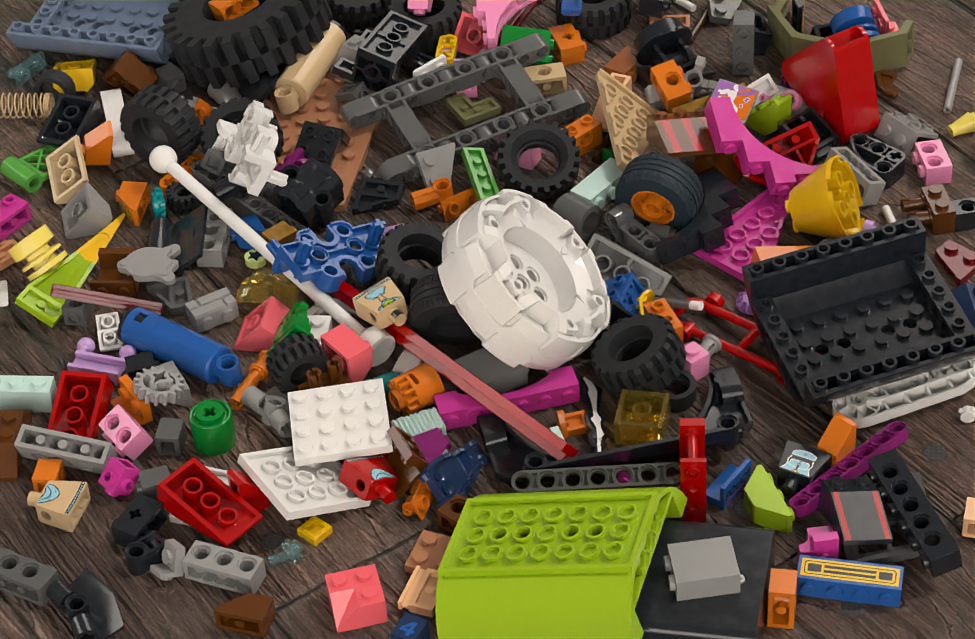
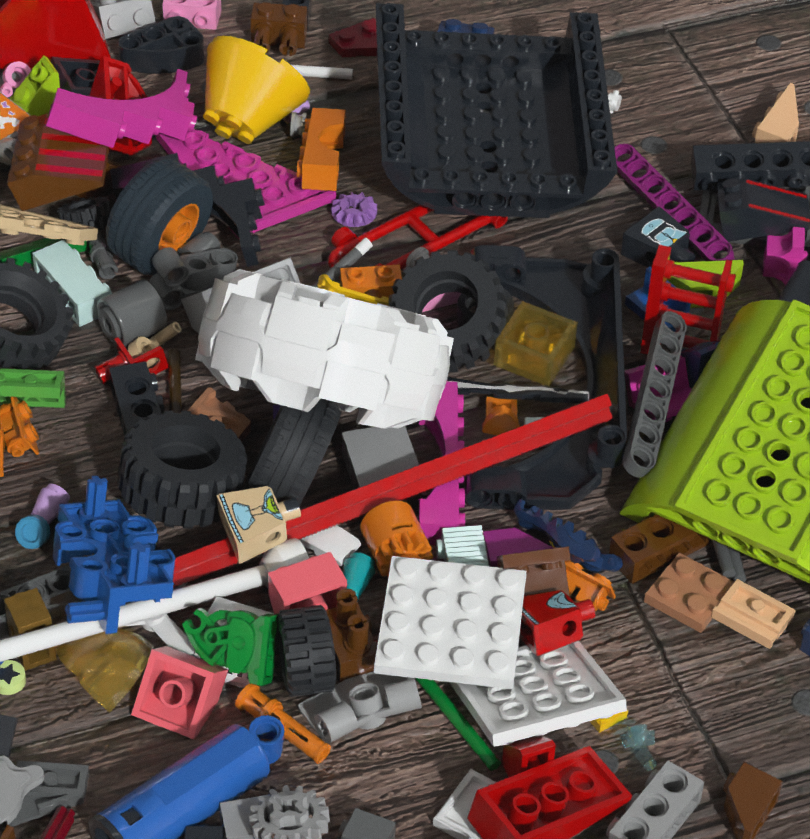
camera: 80 degrees left, 5 degrees up
(212, 310) = (110, 745): light grey brick -> none
(212, 427) = (379, 778): green piece -> none
(356, 598) = (753, 681): coral slope -> none
(838, 438) = (638, 193): orange slope -> none
(869, 182) = (176, 59): light grey brick -> none

